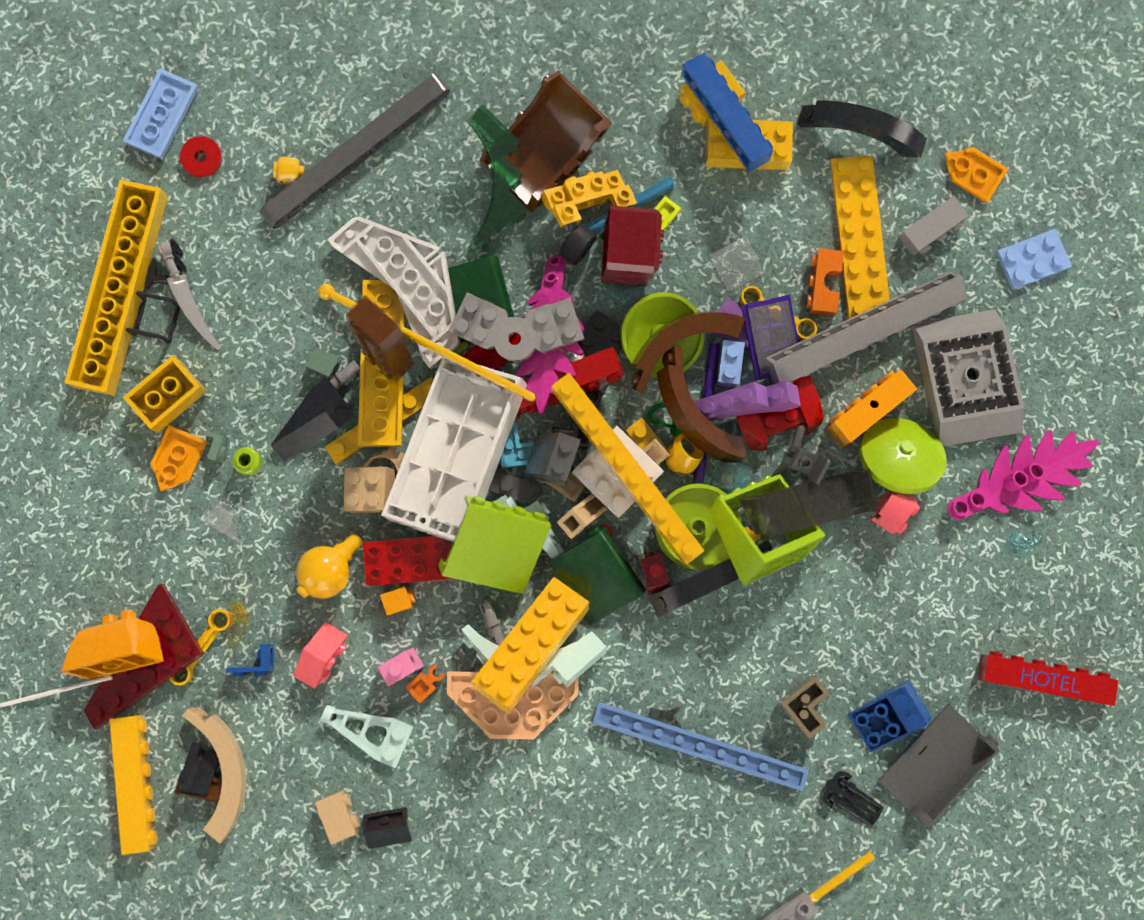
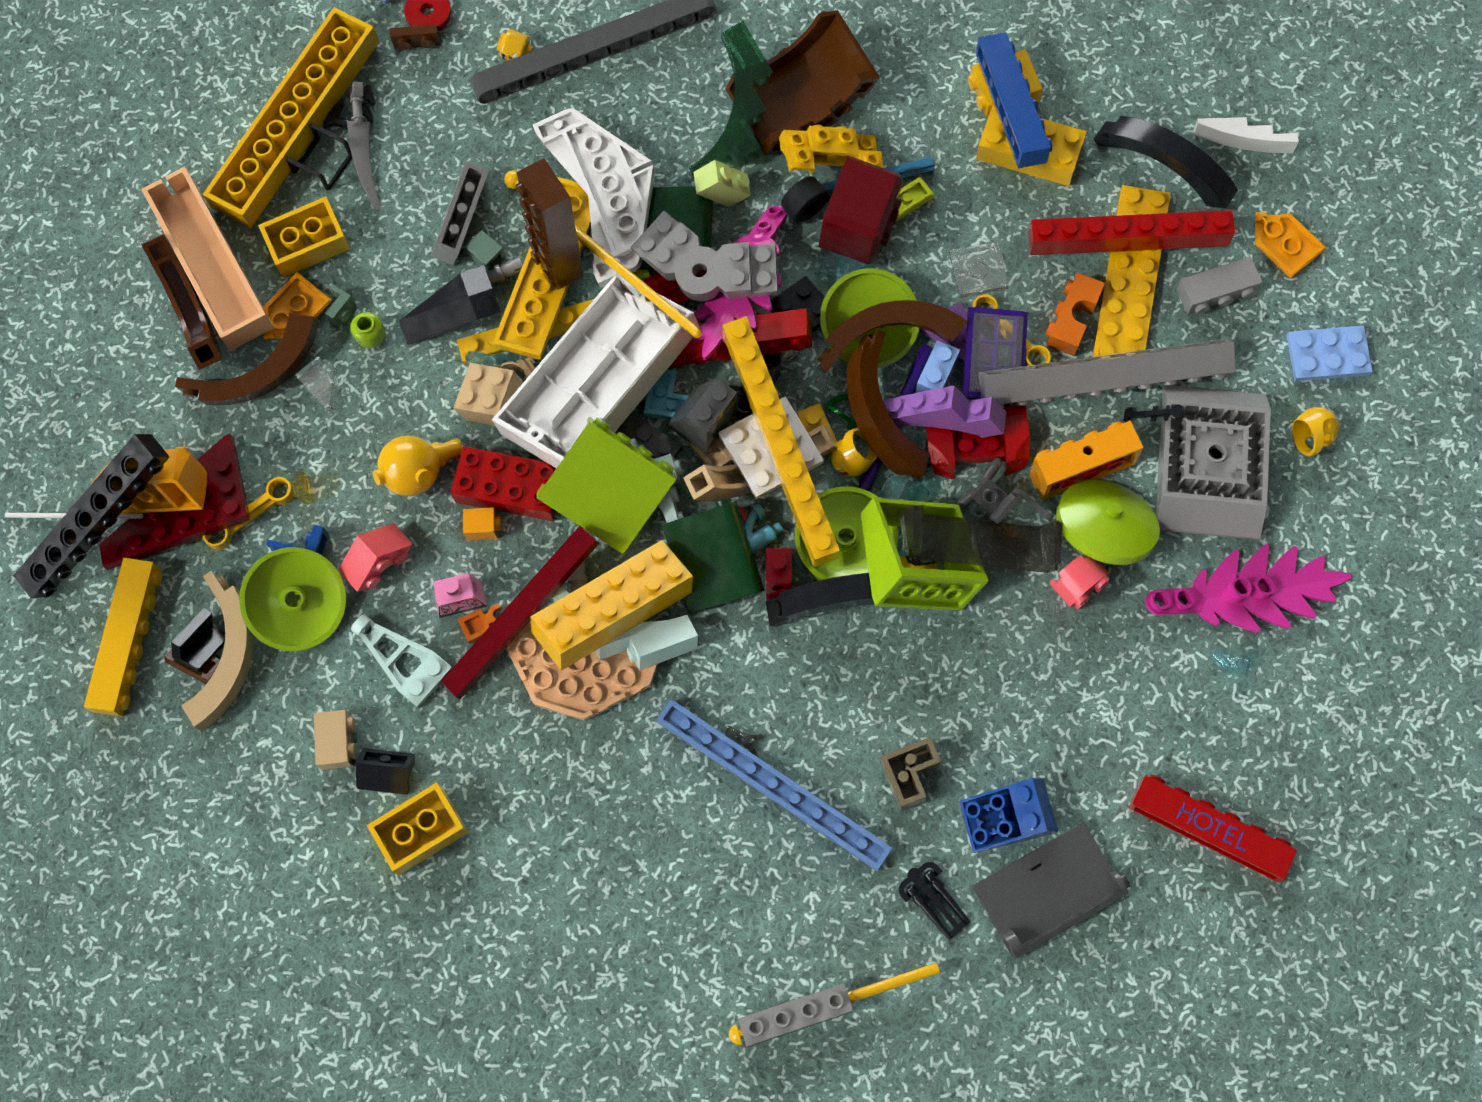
camera: 25 degrees right, 10 degrees down
(72, 698) = (91, 516): none -> black brick
(88, 437) = (208, 259): none -> light nougat piece
(101, 501) = (184, 299): none -> reddish brown arch
(186, 506) = (267, 376): none -> reddish brown arch
(206, 182) = (415, 36): none -> reddish brown plate
(264, 712) = (292, 599): none -> lime dish
(291, 336) = (459, 213): none -> light grey brick
(353, 462) = (480, 358): none -> clear light blue tile
(430, 871) = (417, 829): none -> yellow brick
(456, 668) = (518, 612): none -> dark red tile
(505, 250) = (722, 183): none -> yellowish green piece
(631, 543) = (763, 536): none -> medium azure plant
(853, 202) = (1131, 232): none -> red brick
(913, 88) = (1237, 134): none -> white slope
(935, 350) = (1177, 412): none -> black piece
(1047, 324) = (1320, 423): none -> yellow helmet

